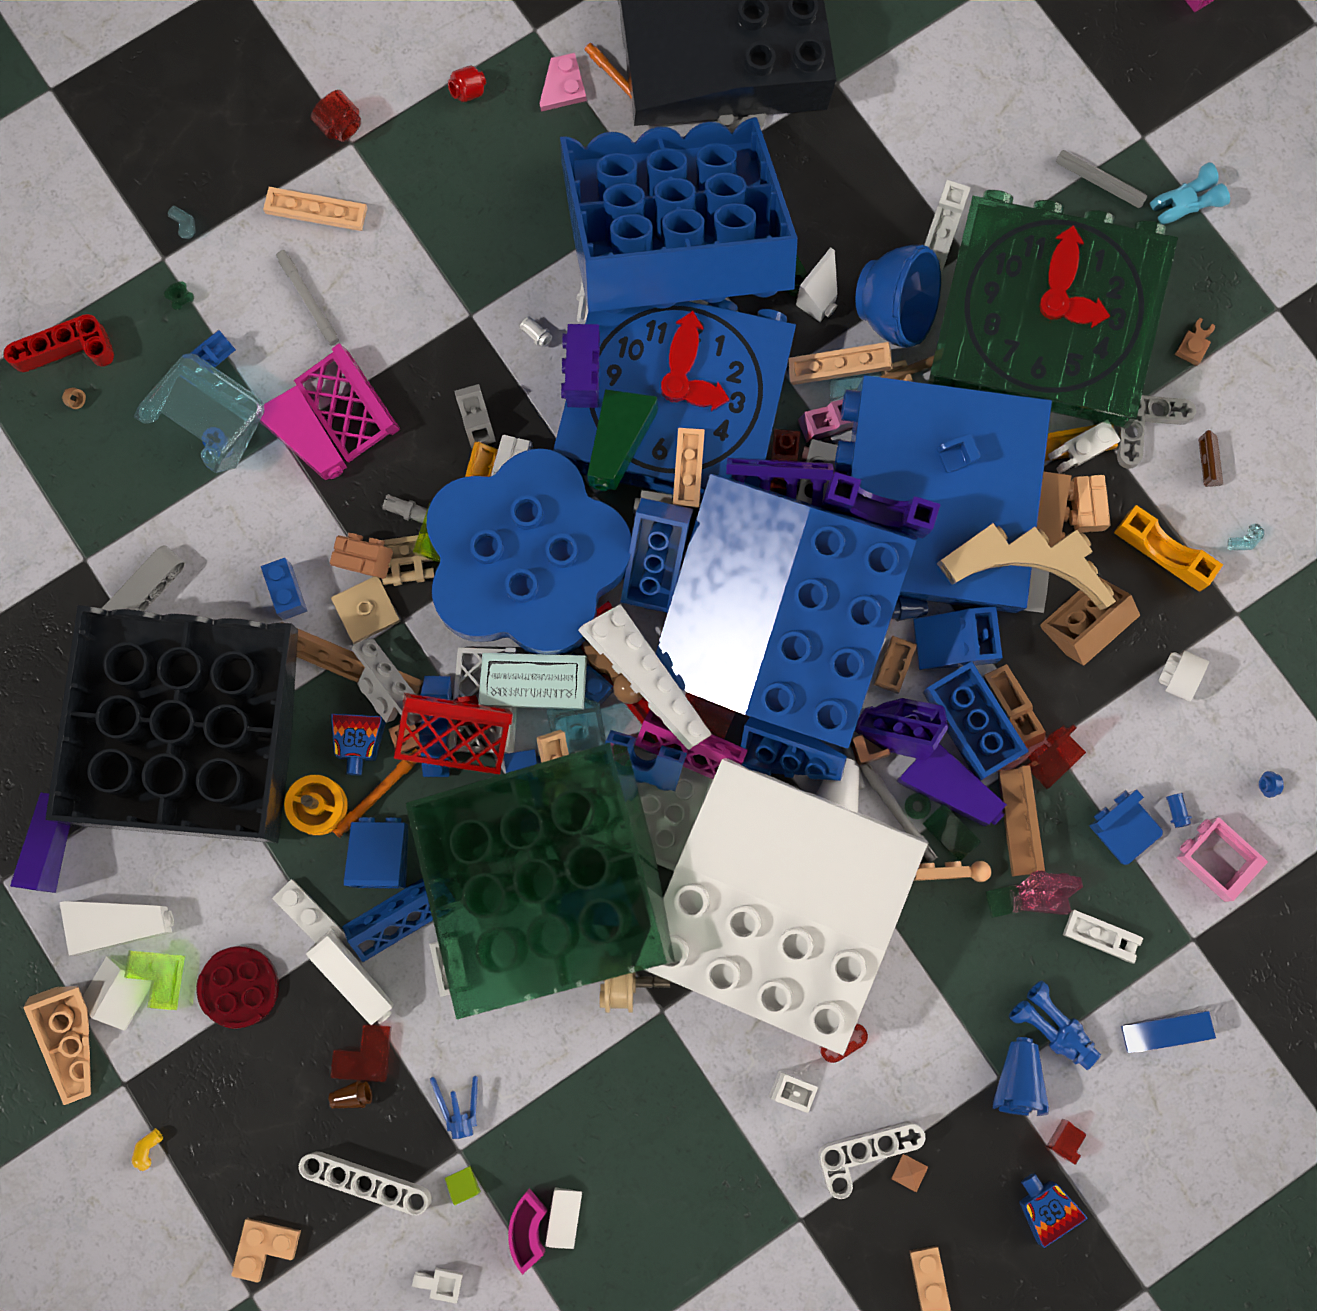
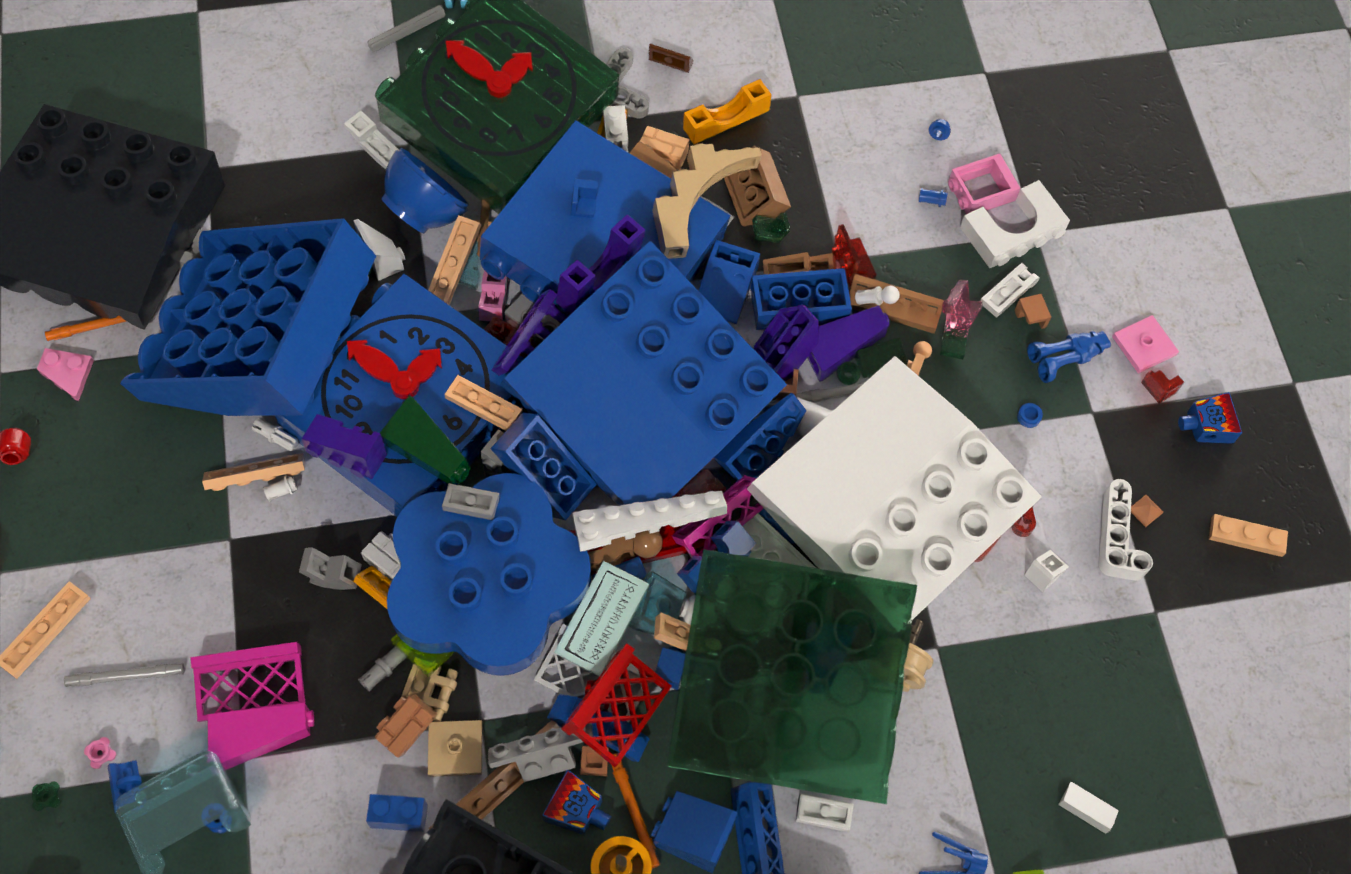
camera: 70 degrees left, 15 degrees down
(226, 313) = (93, 748): none -> bright pink plate
(524, 1231) = (1090, 841): dark pink brick -> none
(537, 296) = (247, 473): none -> light nougat plate
(578, 506) = (470, 501): none -> light grey plate
(962, 1012) = (1029, 415): none -> blue tile
(1015, 799) = (889, 295): none -> white pin
(1022, 1081) = (1103, 392): blue cone -> none
(1048, 655) = (770, 228): none -> clear green bracket
(1086, 971) = (1034, 310): none -> nougat panel
(1110, 1107) = (1145, 344): none -> bright pink plate
(1126, 827) = (930, 236): blue bracket -> none
(1151, 904) = (999, 246): none -> white arch
(1168, 1031) = (1102, 277): blue slope -> none
(1183, 674) = (830, 144): white piece -> none
(1194, 343) = (574, 28): nougat plate -> none
(1249, 541) = (746, 60): clear light blue arm -> none

